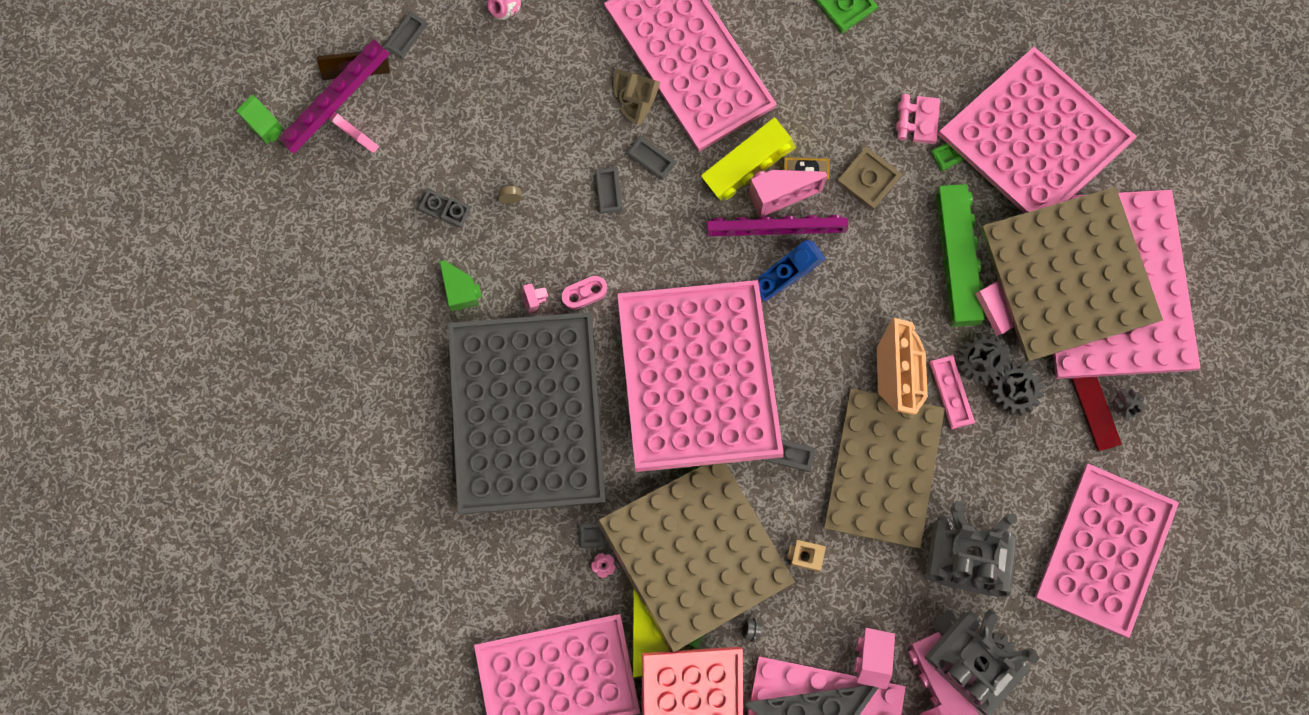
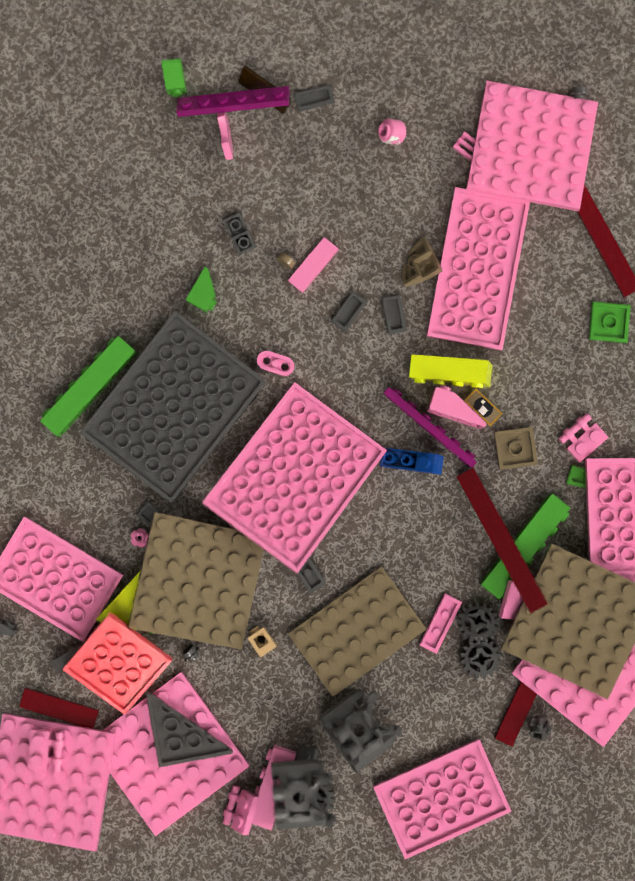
camera: 45 degrees right, 10 degrees up
(427, 466) = (88, 386): none -> bright green brick
(533, 298) = (240, 339): bright pink tile -> none
(538, 178) = (313, 265): none -> bright pink tile
(875, 658) = (245, 735): bright pink brick -> none
(902, 367) = (421, 584): light nougat wedge -> none
(937, 264) = (502, 541): none -> dark red tile

